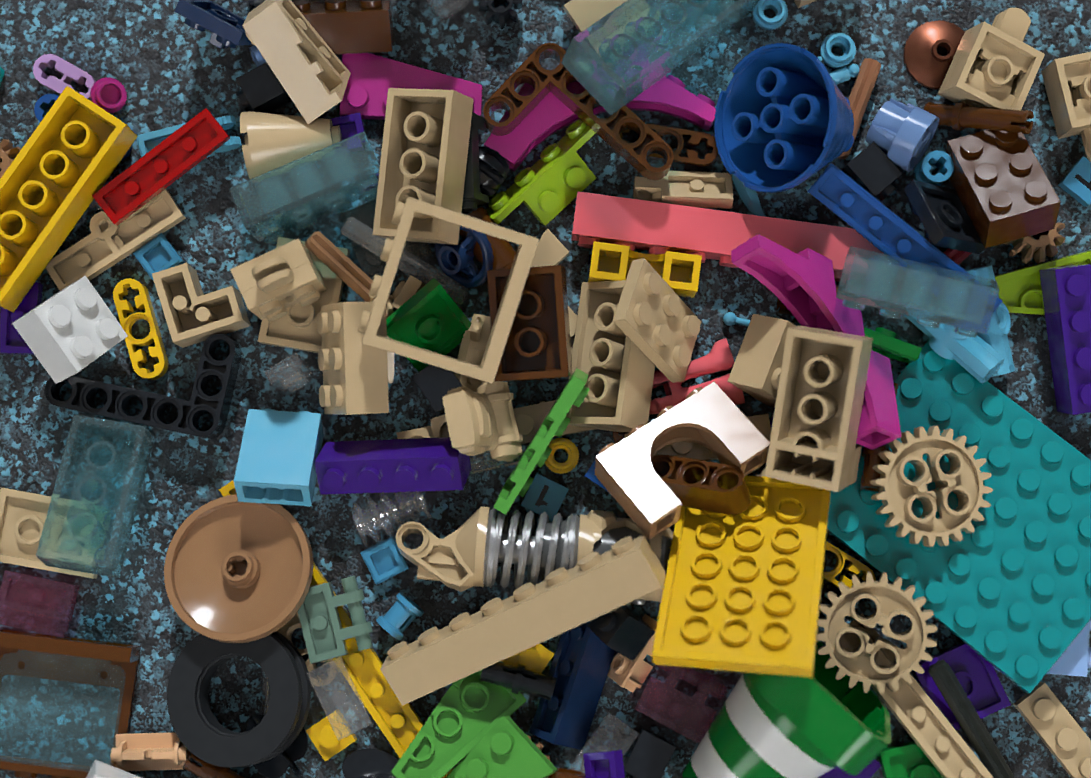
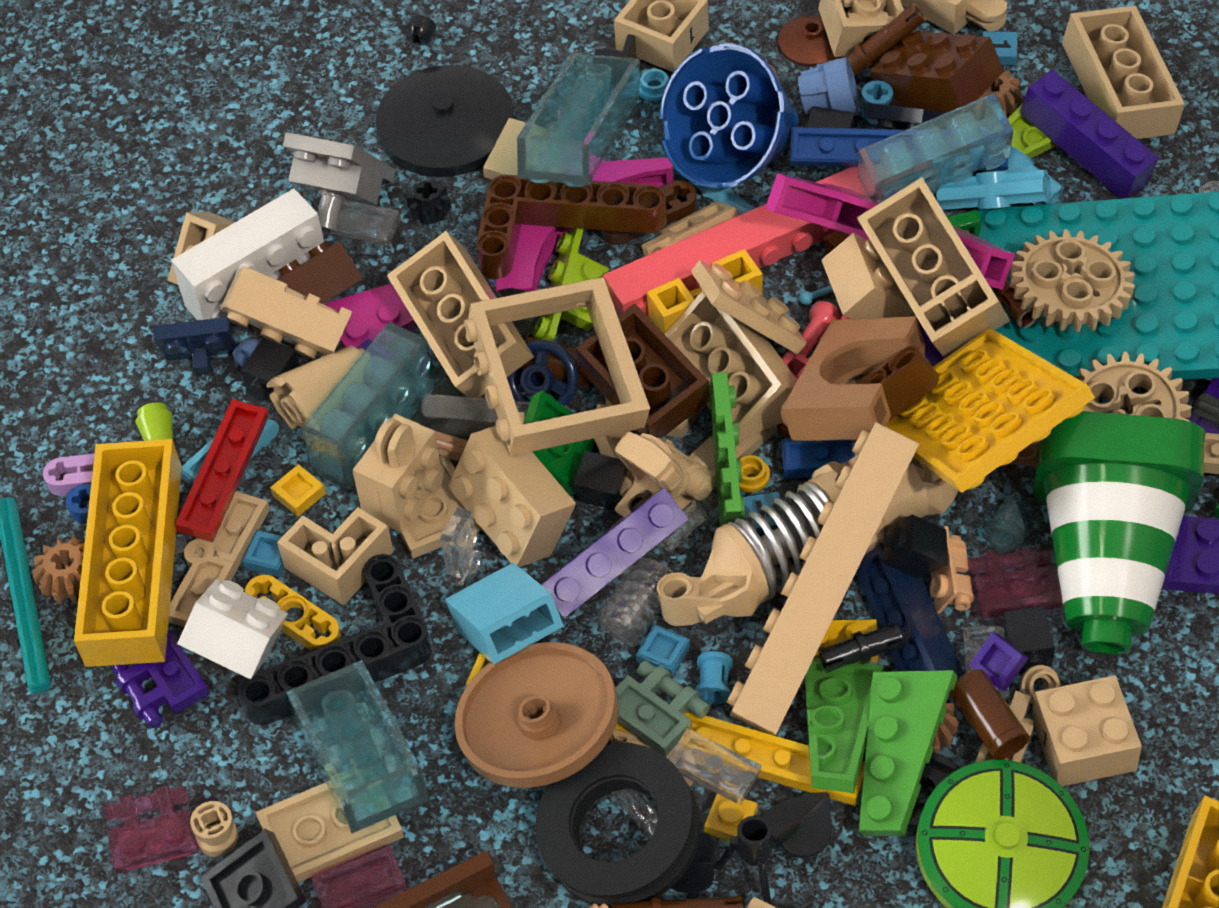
camera: 30 degrees left, 30 degrees down
(145, 82) = (155, 422): none -> lime cone
(214, 219) = (298, 490): none -> yellow plate

